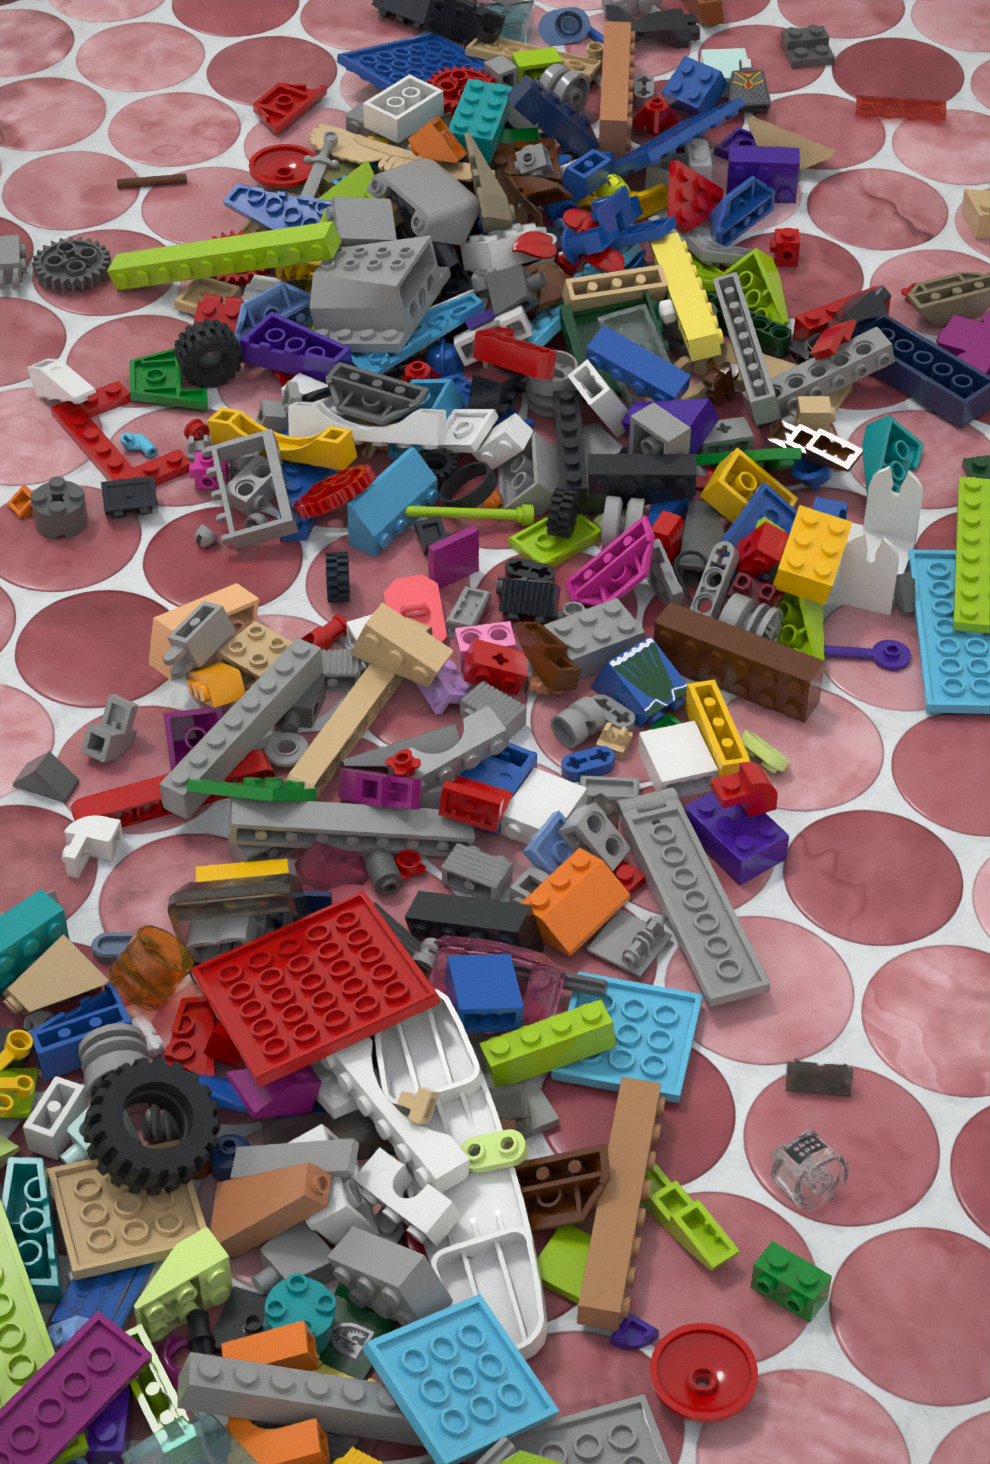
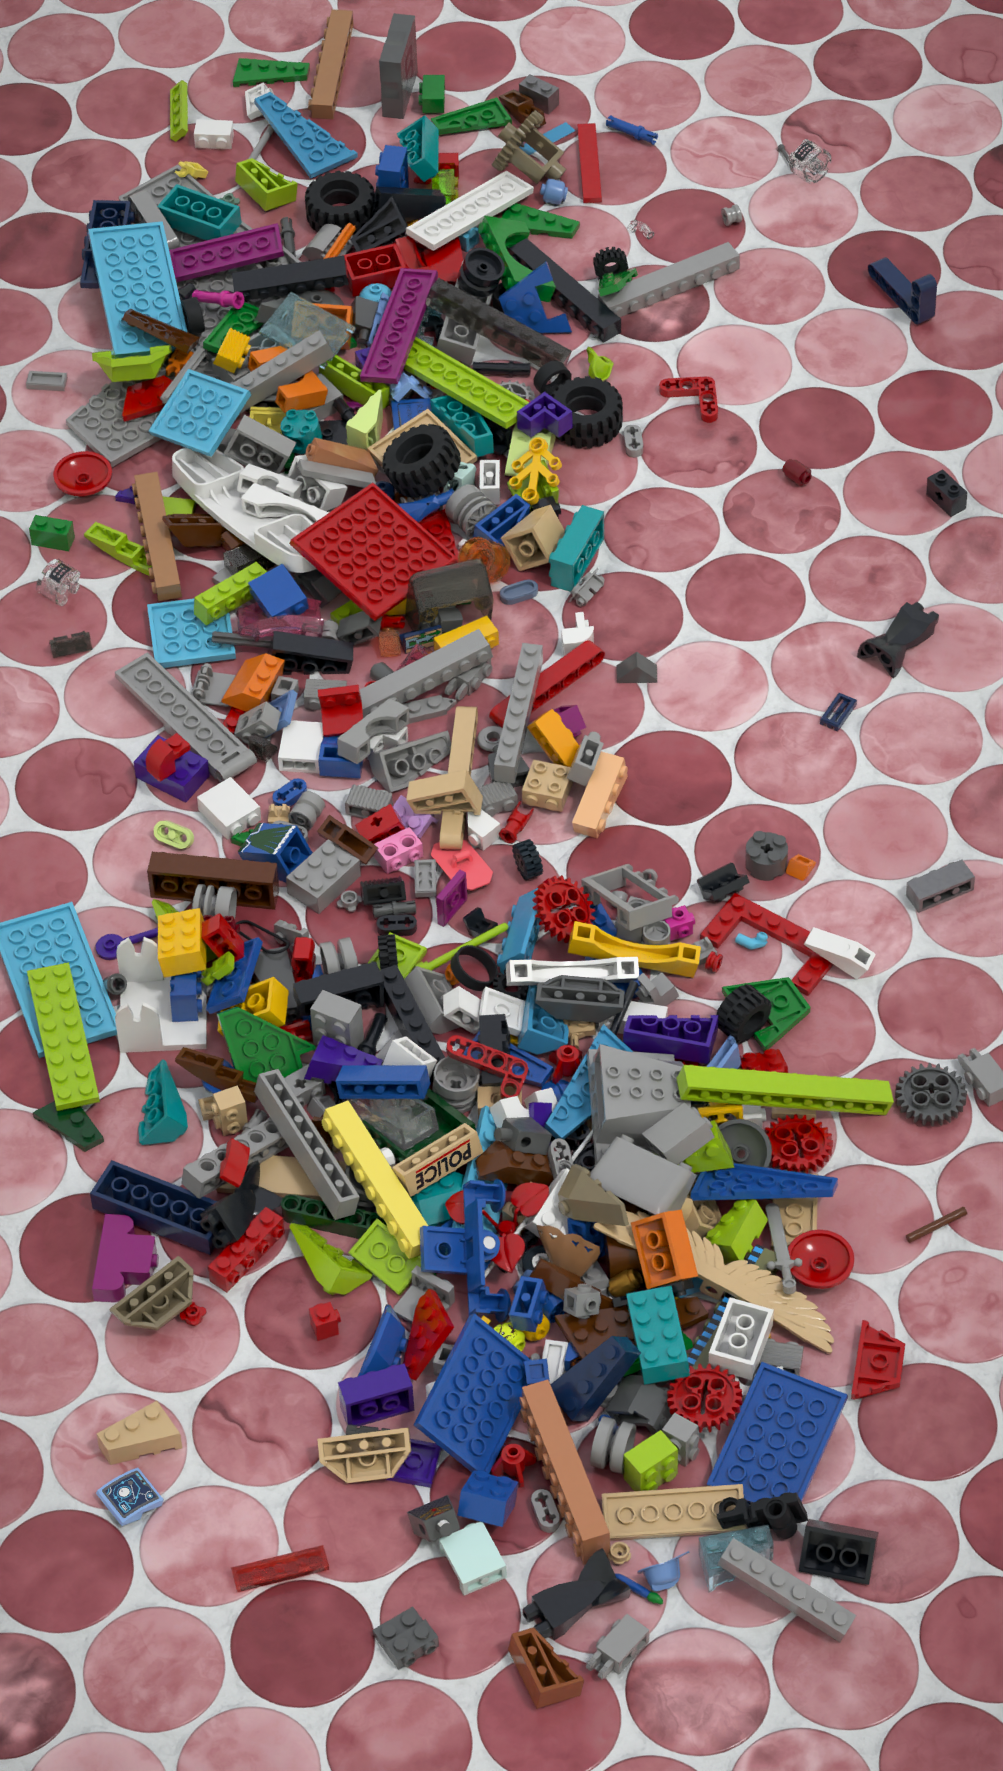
camera: 160 degrees right, 5 degrees up
(113, 735) = (611, 704): light grey brick -> none
(256, 788) = (470, 664): green wing -> none
(379, 789) = (418, 704): magenta slope -> none
(403, 763) = (393, 699): red plate -> none
(420, 1104) = (277, 504): tan tile -> none
(492, 1152) = (232, 516): yellowish green plate -> none
(611, 787) = (267, 781): light grey tile -> none
(616, 567) = (329, 923): dark pink wedge -> none
(708, 710) = (207, 826): yellow brick -> none
(715, 252) = (374, 1291): light grey wing -> none
(718, 593) = (250, 920): light grey beam -> none

